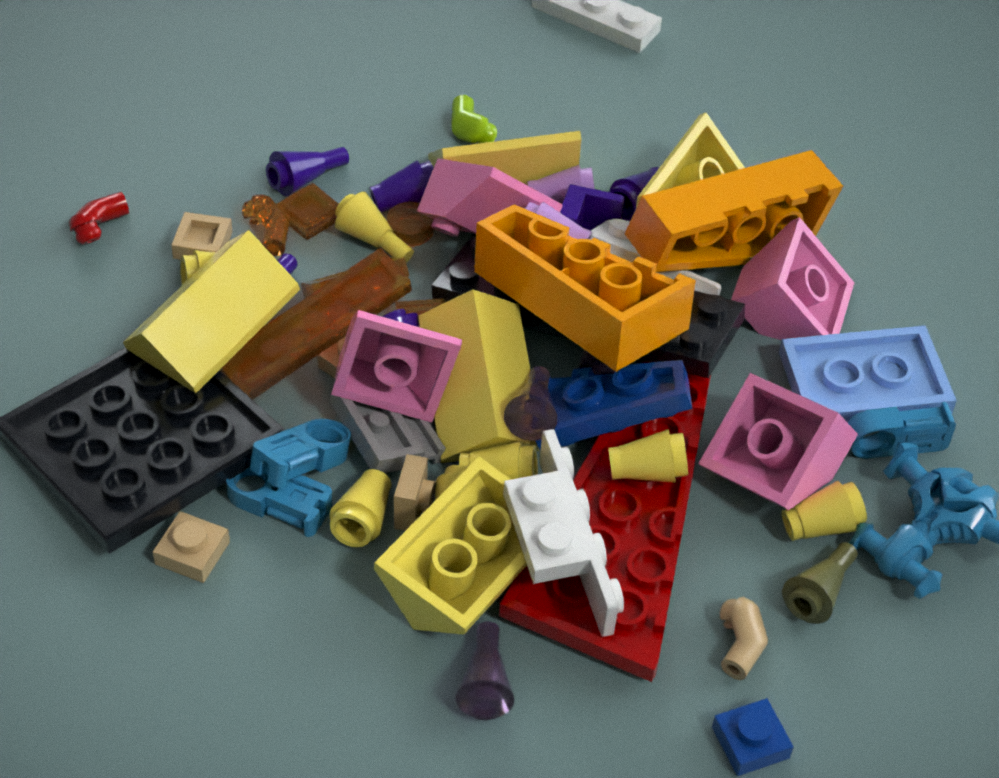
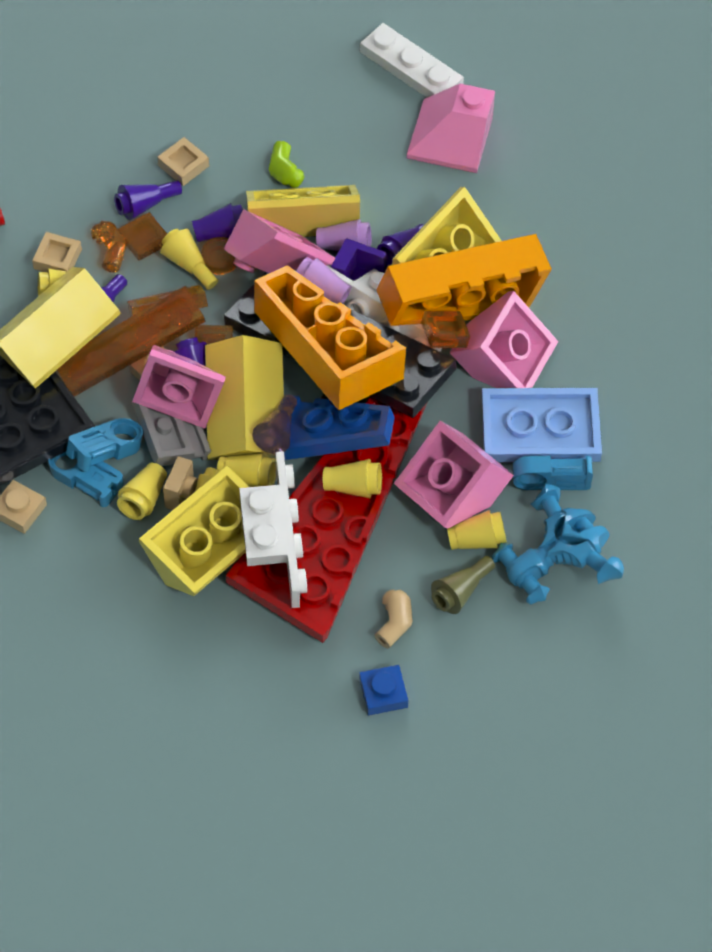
camera: 10 degrees right, 10 degrees up
(345, 125) = (183, 161): none -> tan plate
(485, 686) = (205, 632): clear purple cone -> none
(664, 66) = (453, 127): none -> bright pink slope
(724, 269) = (445, 329): none -> clear orange plate

